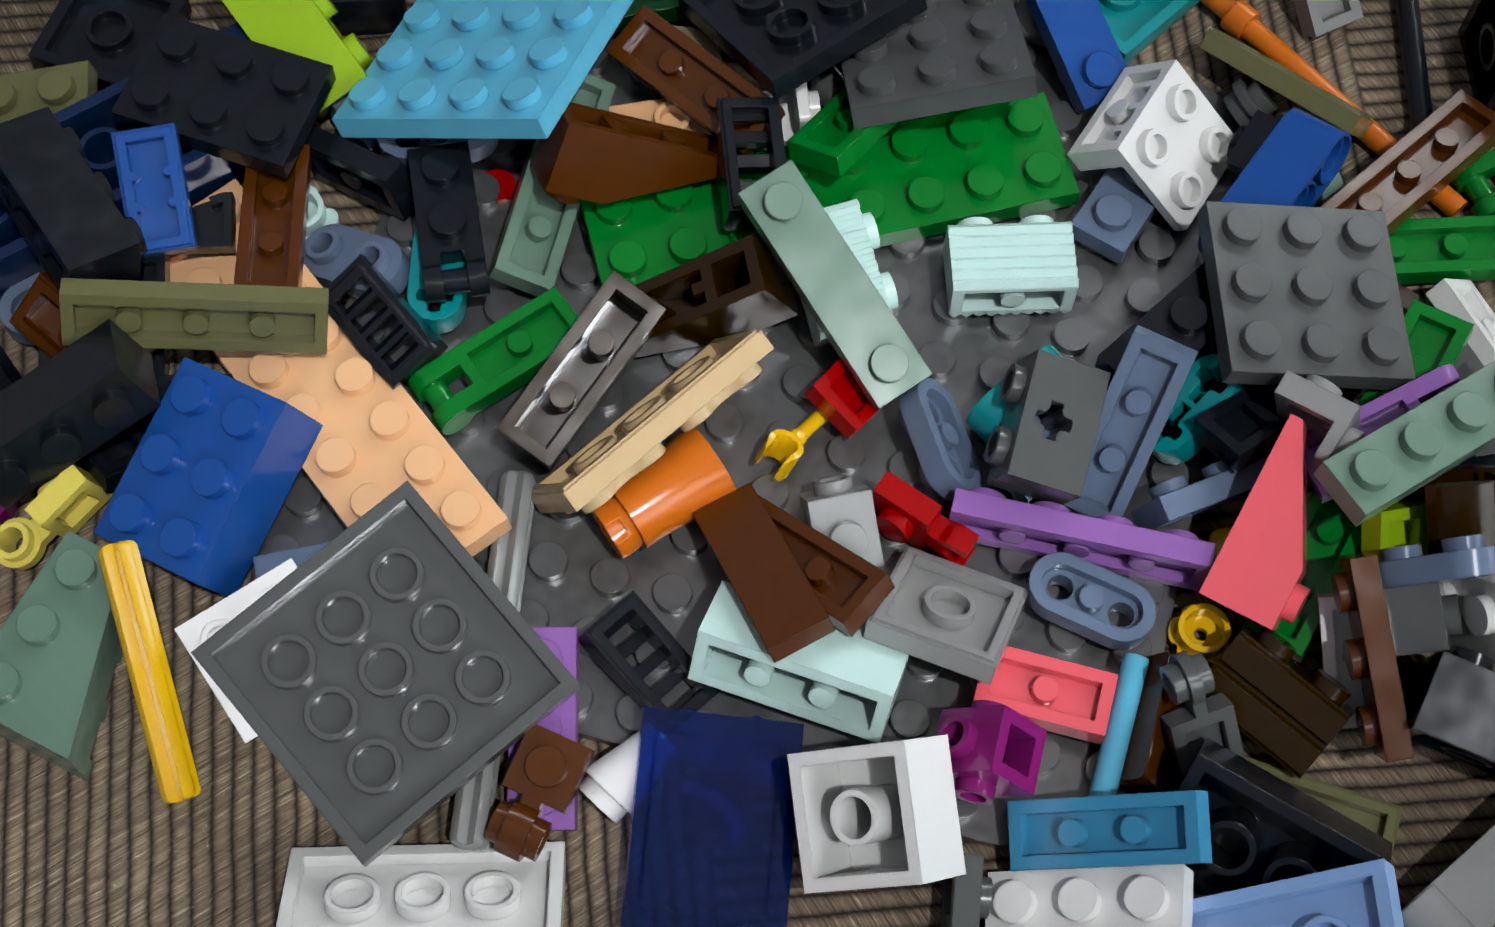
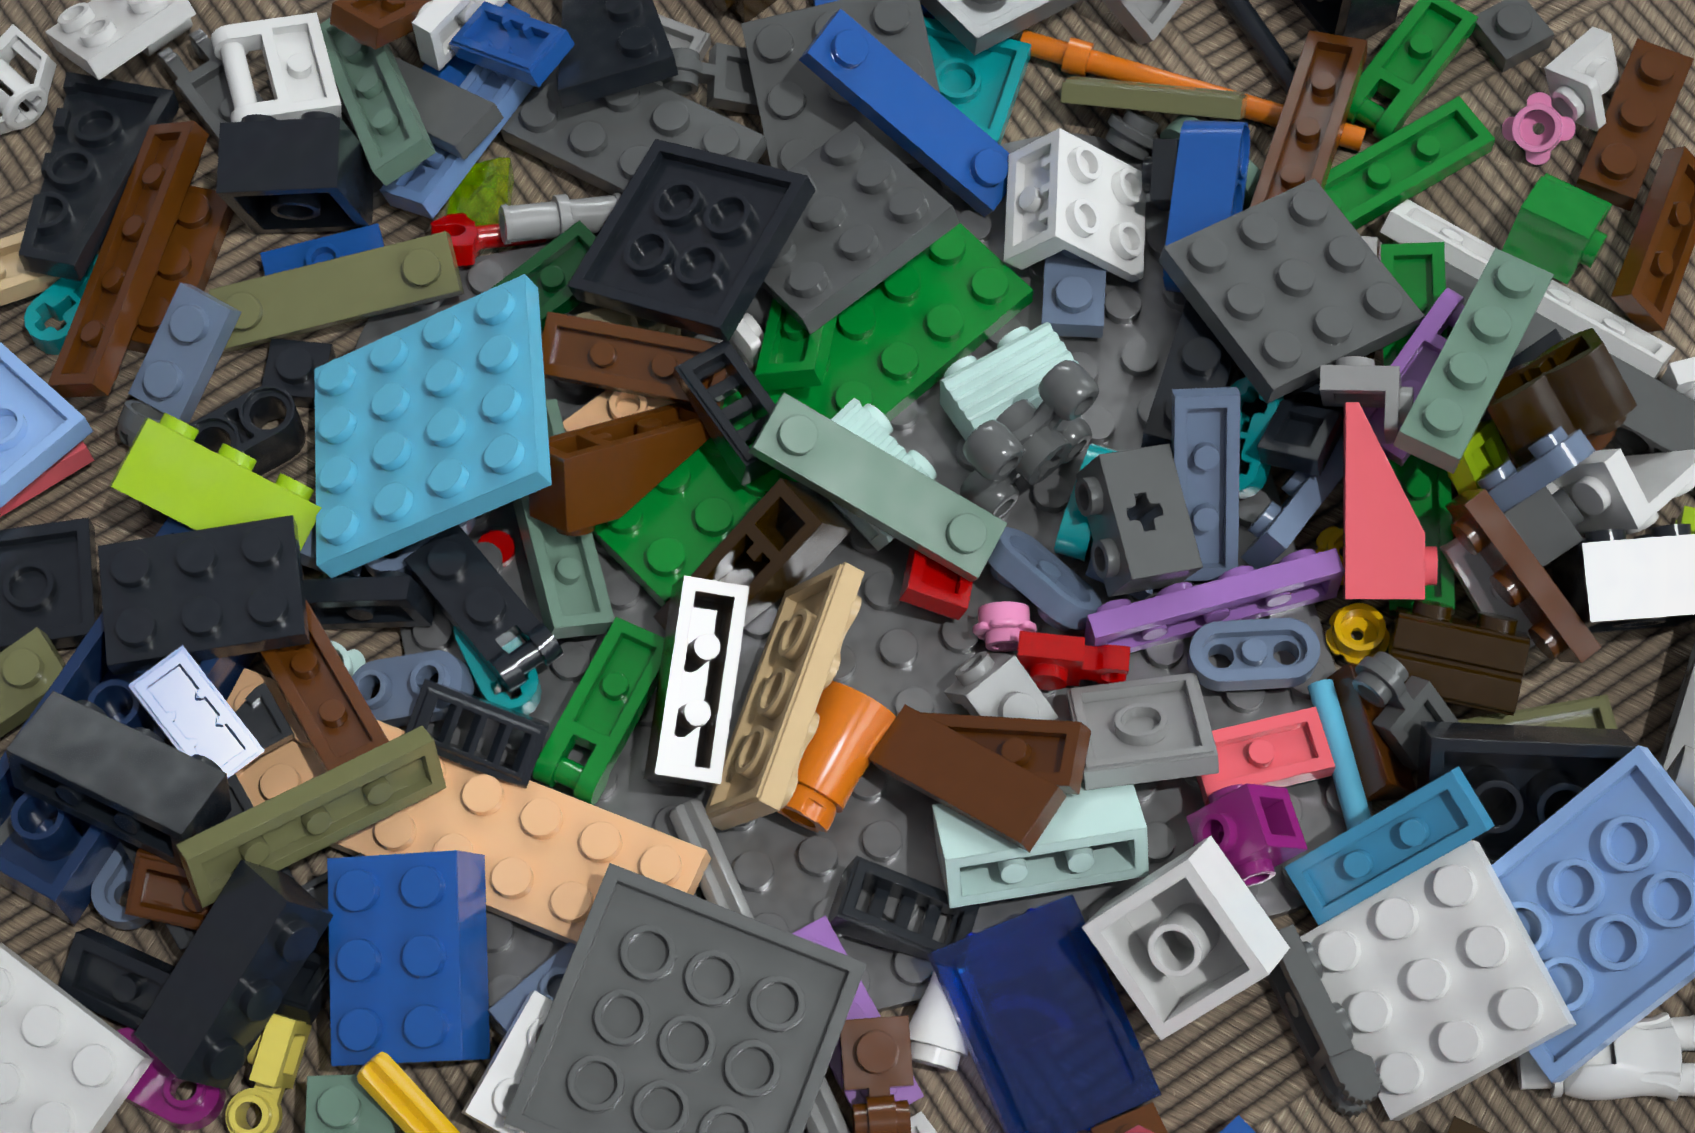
camera: 25 degrees left, 0 degrees up
(788, 445) = (911, 653): yellow hand -> none
(880, 456) = (1001, 624): none -> bright pink plate
(991, 311) = (1029, 439): none -> dark grey gear

